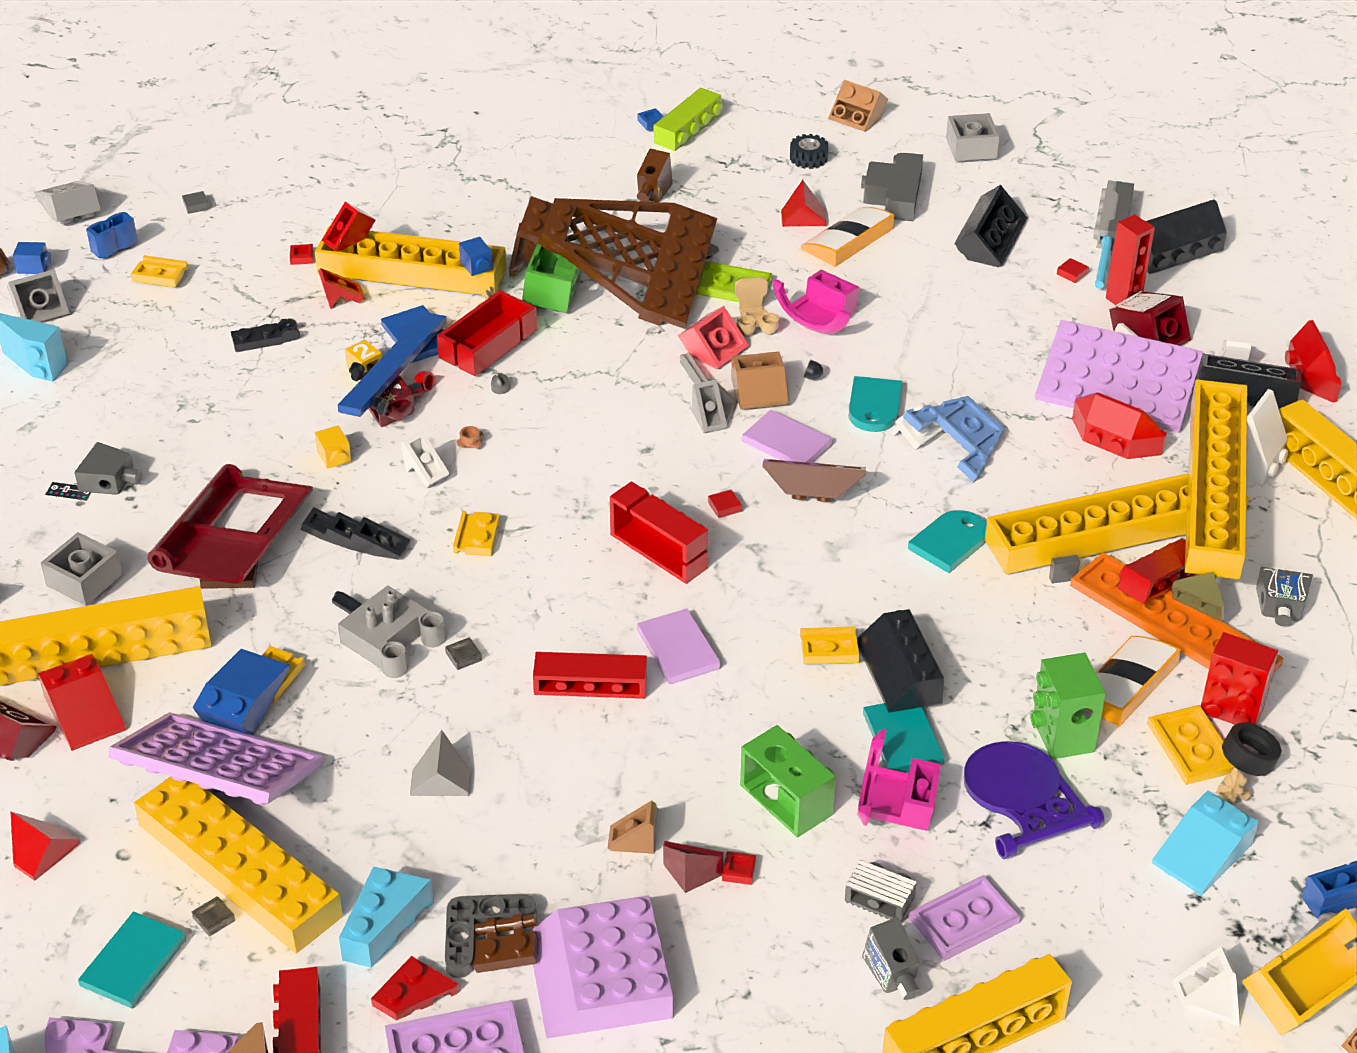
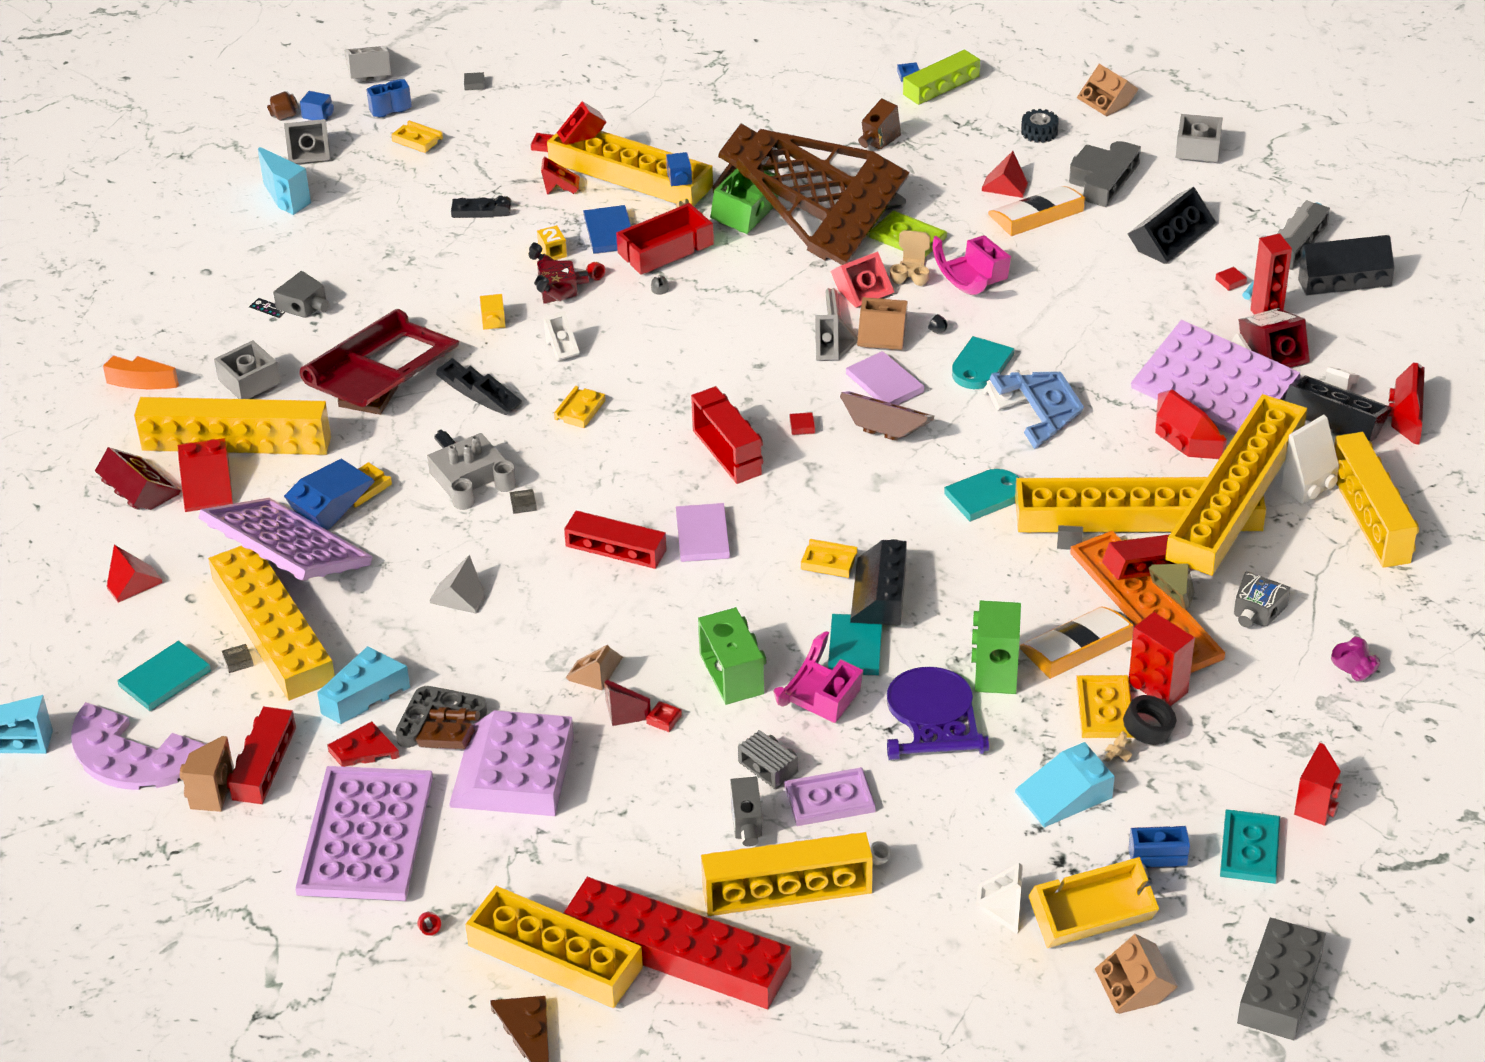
camera: 20 degrees right, 0 degrees up
(391, 364) = (569, 250): blue tile -> none
(470, 437) = (611, 325): nougat plate -> none

